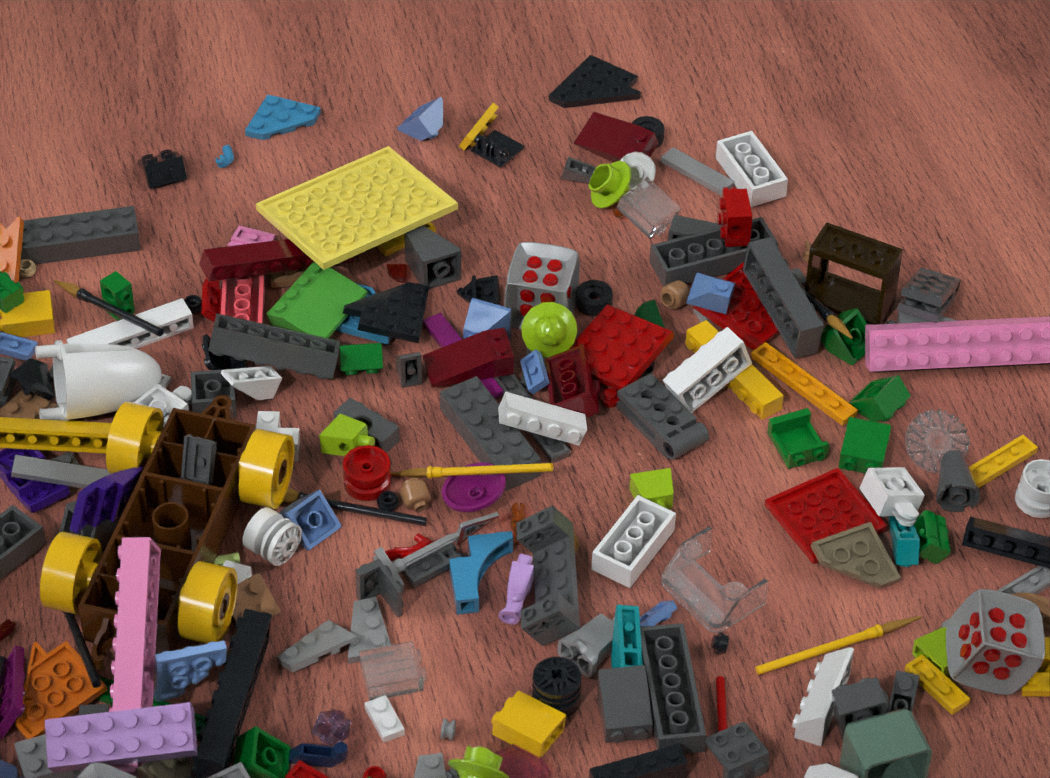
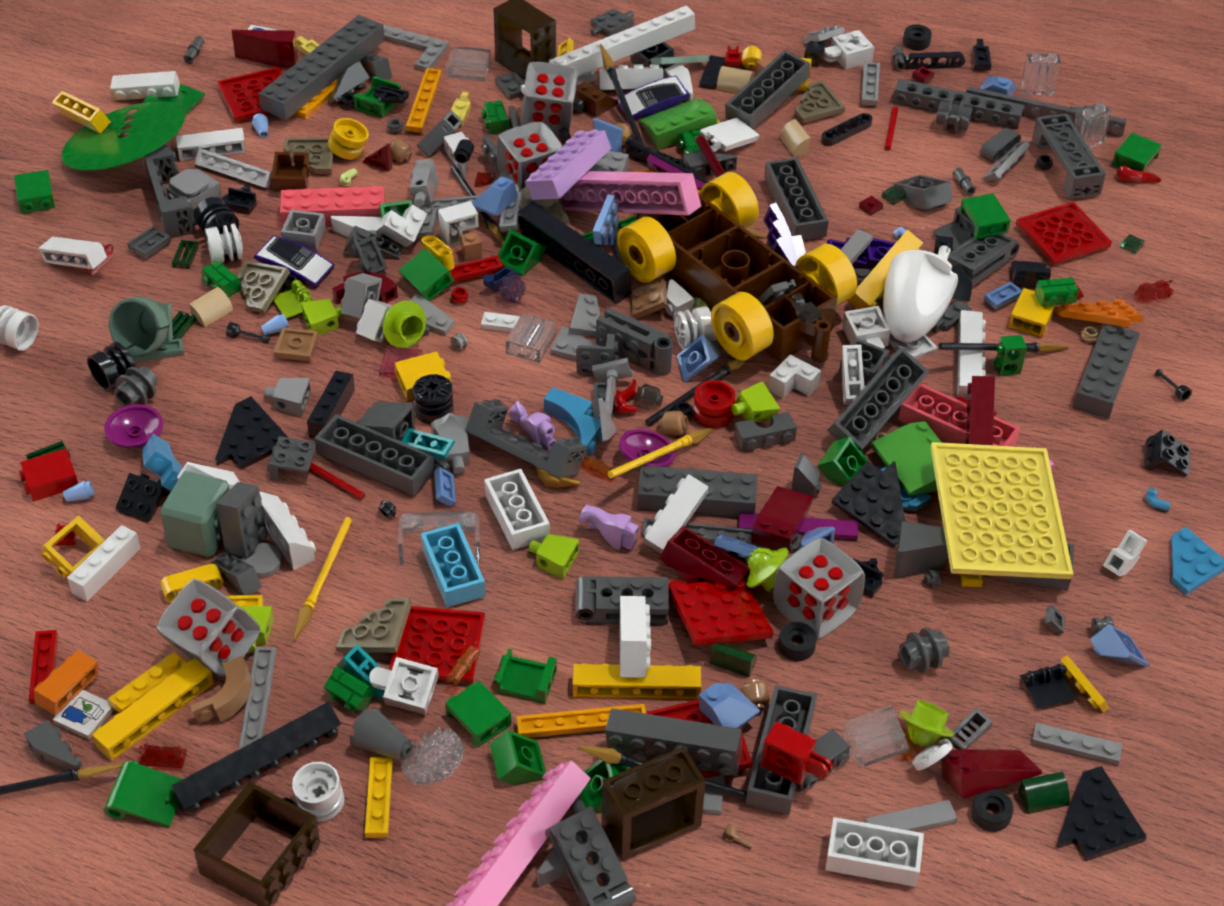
camera: 125 degrees right, 0 degrees up
(64, 184) = (1182, 392): none -> black hinge
(216, 415) = (806, 311): none -> clear smoke plate
(320, 150) = (1125, 556): none -> white brick
(334, 558) = (636, 341): none -> dark grey hinge
(396, 531) = (648, 397): none -> clear smoke head
(408, 137) = (1098, 624): none -> dark grey wheel
(427, 165) = (1054, 620): none -> dark grey plate
(538, 117) = (1077, 744): none -> light grey plate
(538, 213) = (924, 650): none -> dark grey piece
(592, 463) = (615, 528): none -> lavender hips
(594, 105) = (1044, 792): none -> dark green brick
(741, 545) = (453, 565): none -> medium azure brick
(835, 474) = (463, 665): none -> clear orange pin
(947, 731) = (174, 583): none -> yellow beam

